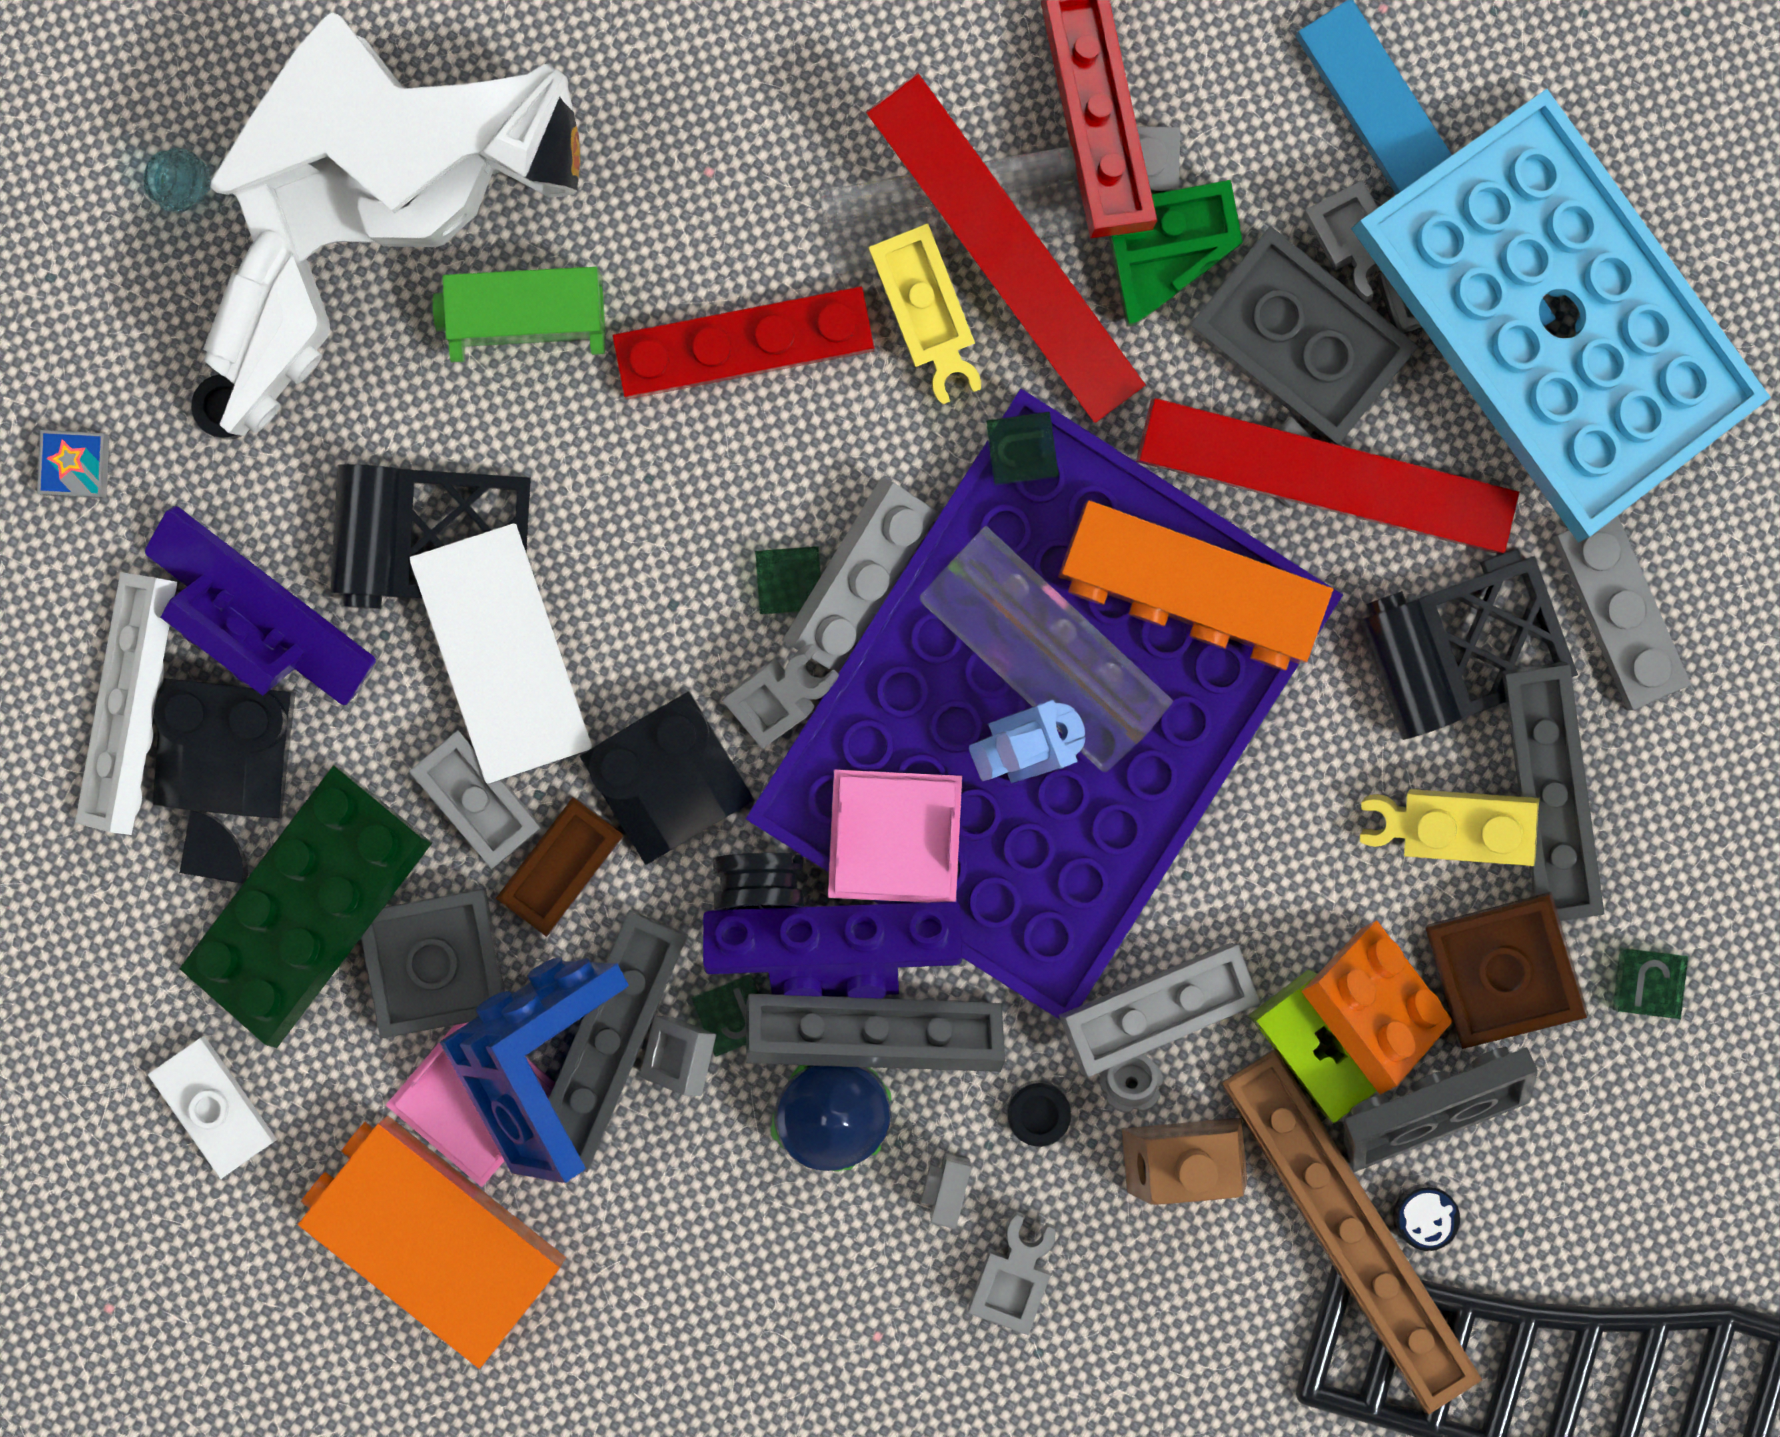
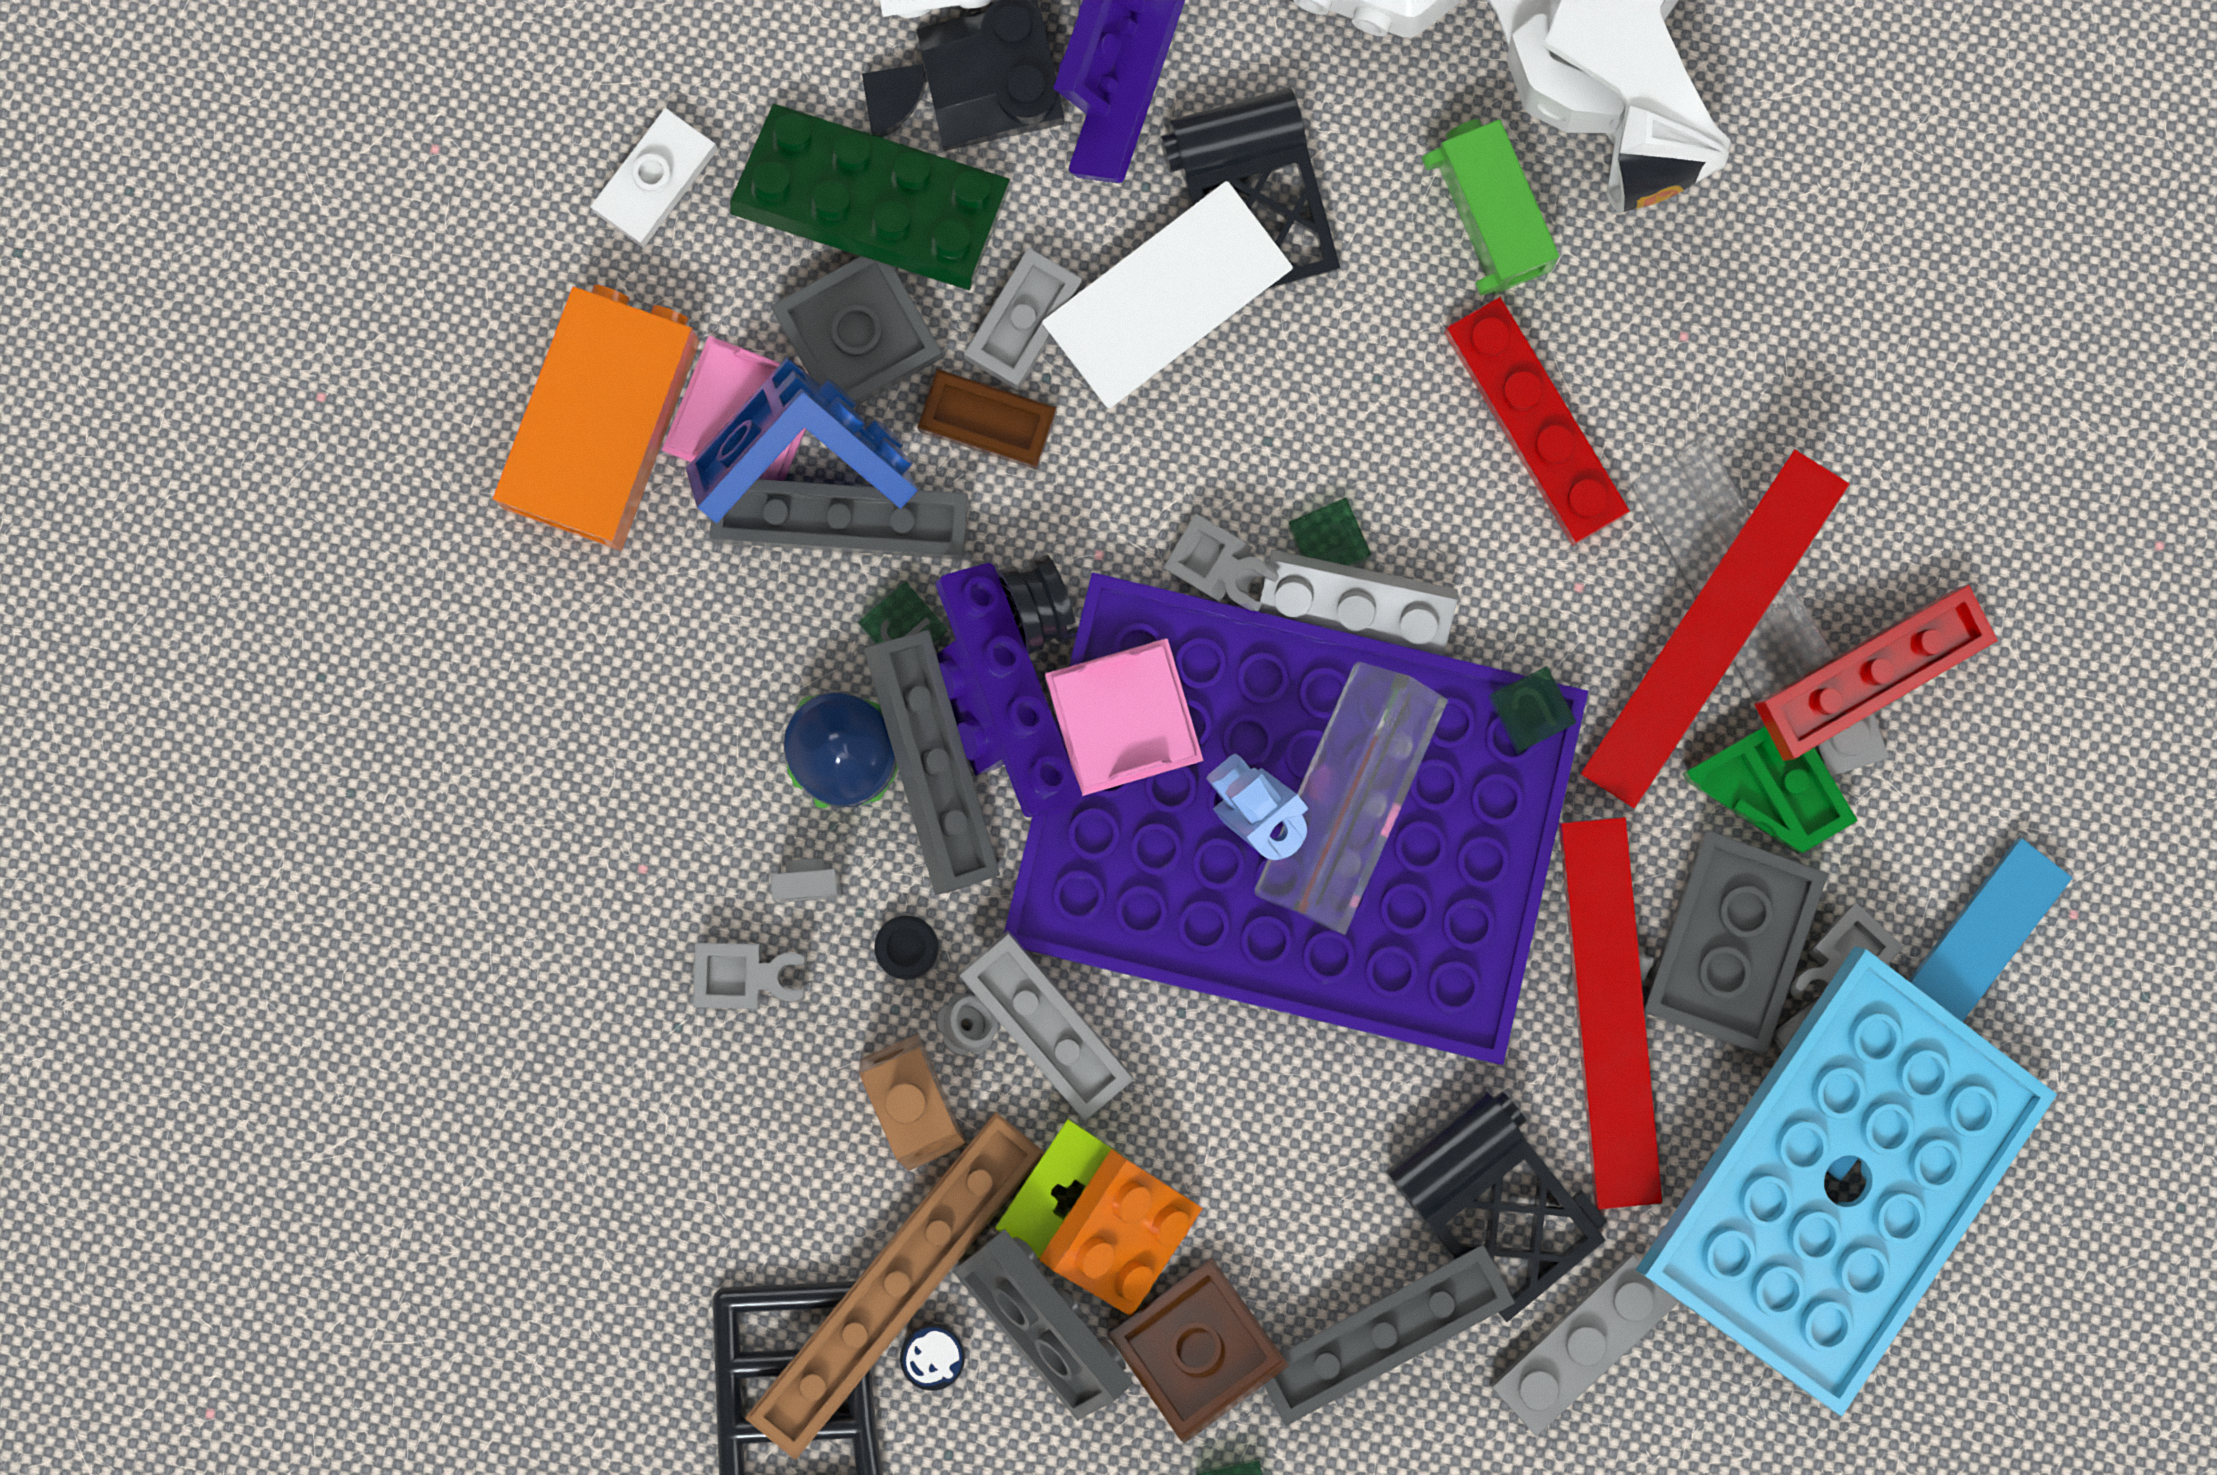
camera: 70 degrees right, 5 degrees down
(667, 777) = (1105, 487): black slope -> none
(678, 1055) = (847, 586): light grey plate -> none
(925, 305) = (1633, 575): light yellow plate -> none
(1195, 584) = (1463, 913): orange brick -> none
(1458, 826) = (1321, 1254): light yellow plate -> none

